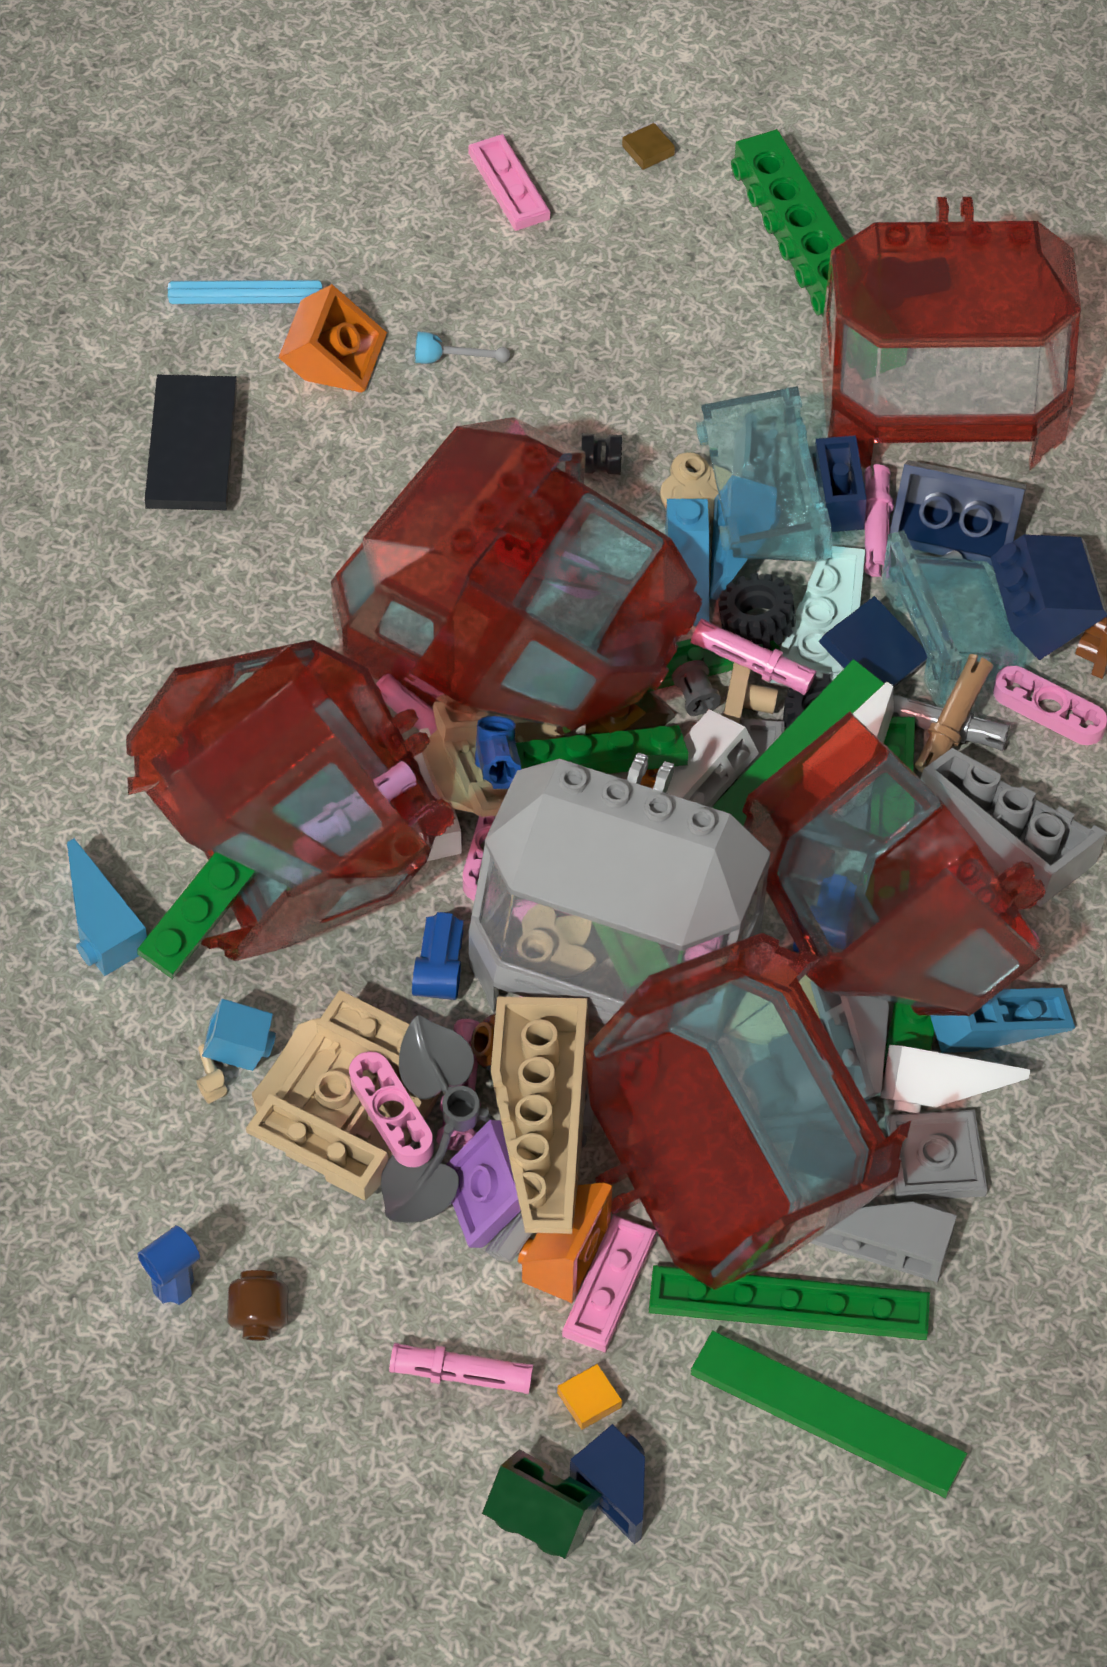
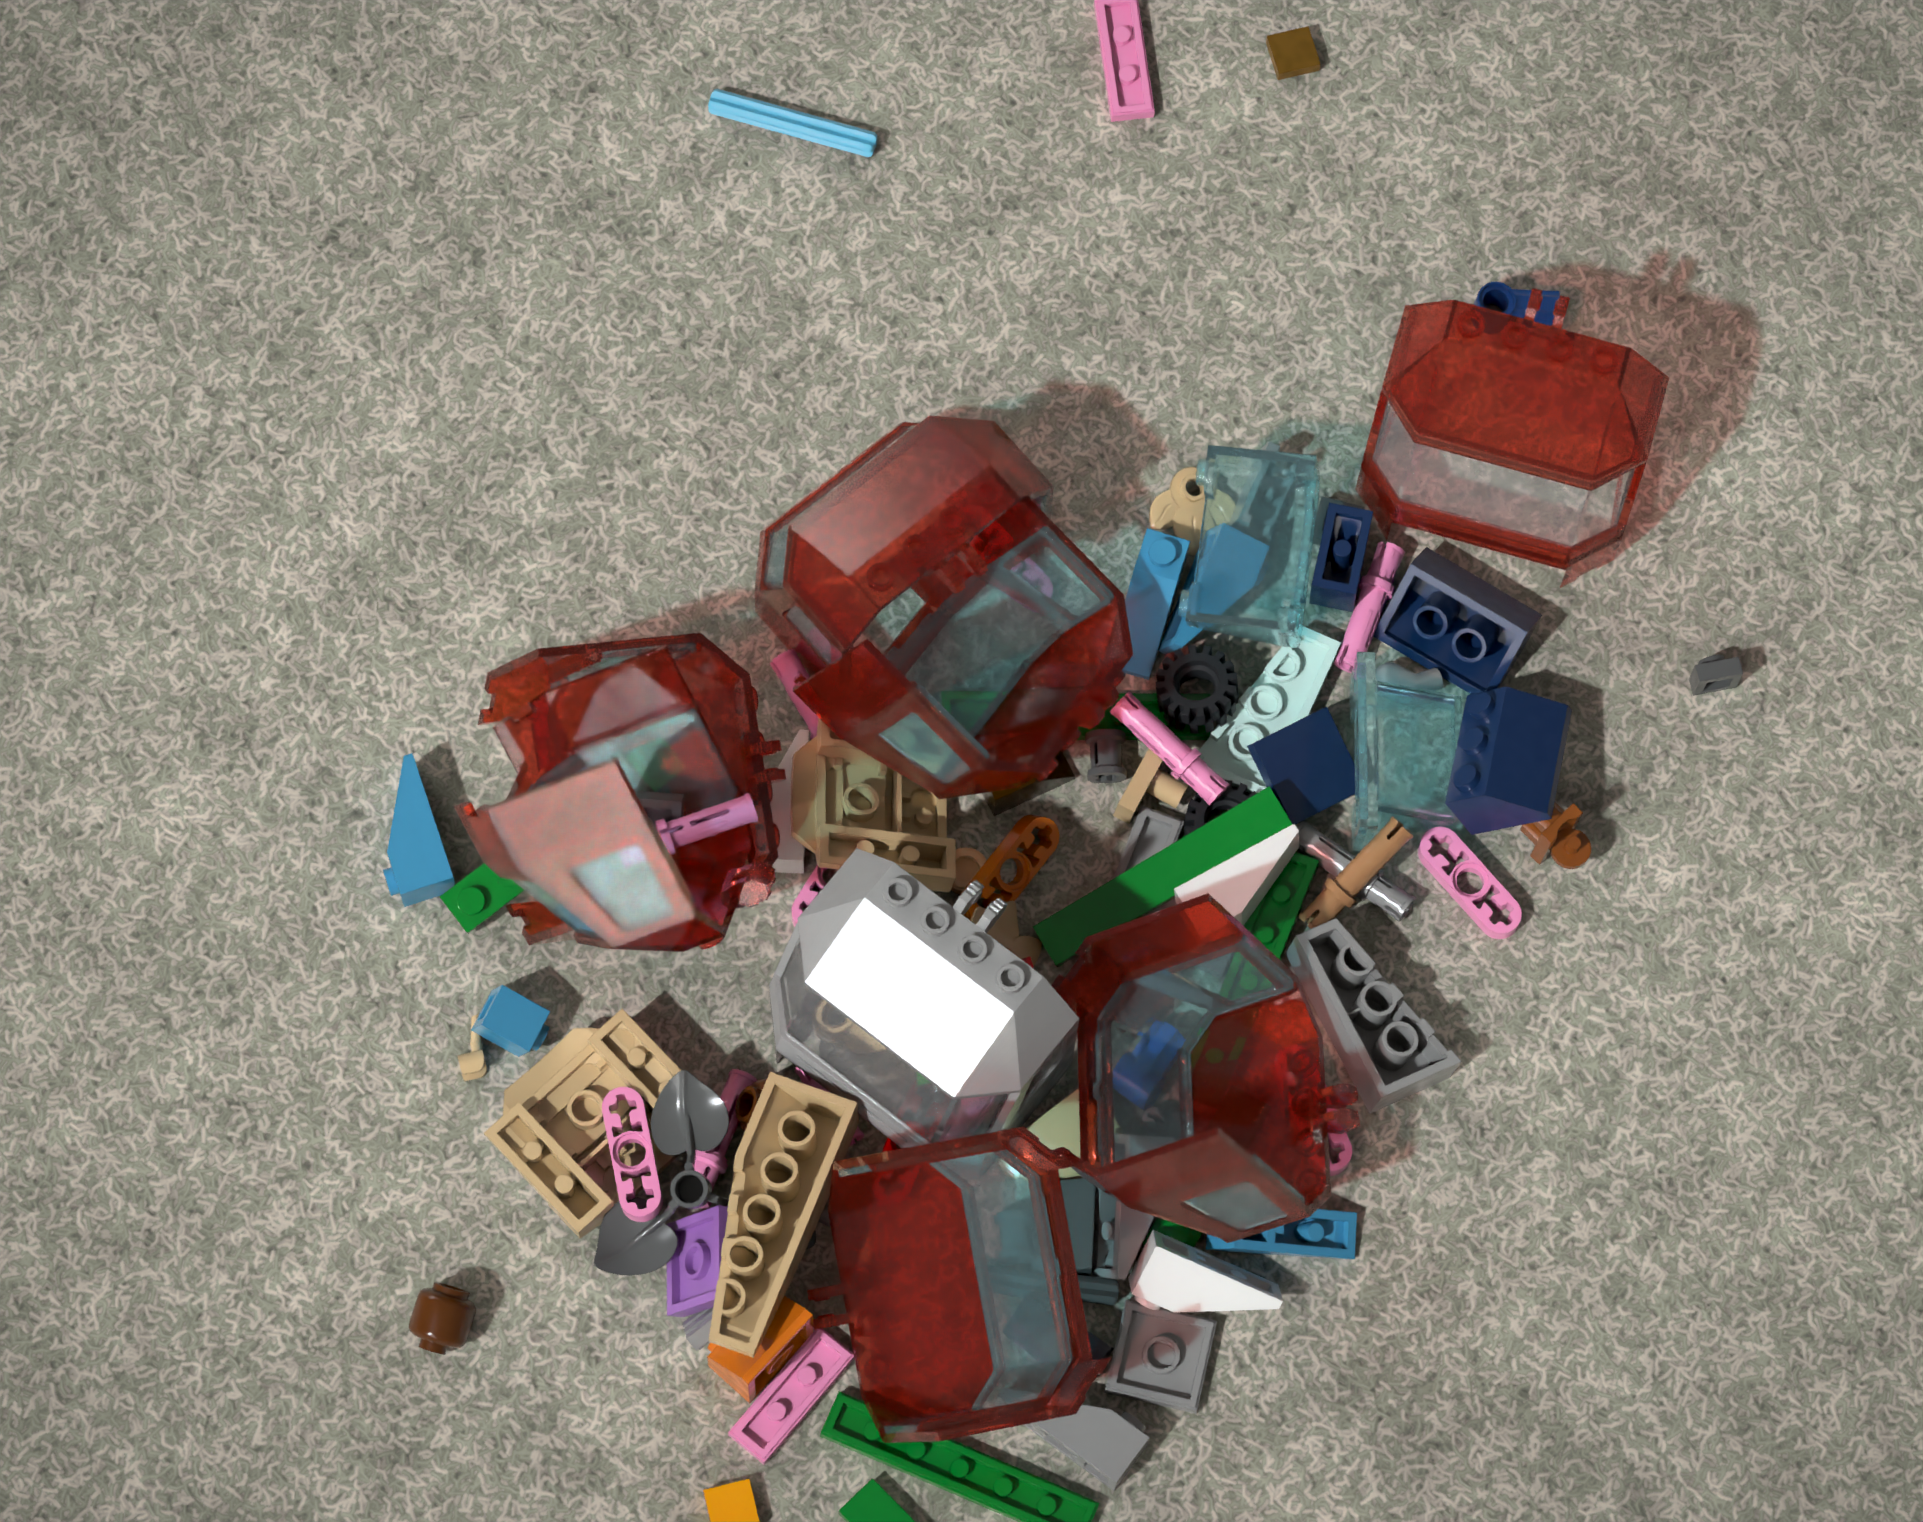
camera: 15 degrees right, 15 degrees up
(170, 1264) = (367, 1256): blue piece -> none
(191, 442) = (676, 301): black tile -> none
(332, 341) = (864, 218): orange slope -> none
(430, 349) = (968, 254): hinge -> none
(439, 967) = (734, 1003): blue piece -> none
(461, 1368) = (610, 1439): bright pink pin -> none
(497, 750) = (859, 797): blue piece -> none
(593, 447) = (1093, 439): black wheel -> none
(609, 751) = (971, 818): green plate -> none
(716, 757) = (1078, 857): white slope -> none
(789, 209) = (1417, 109): green brick -> none

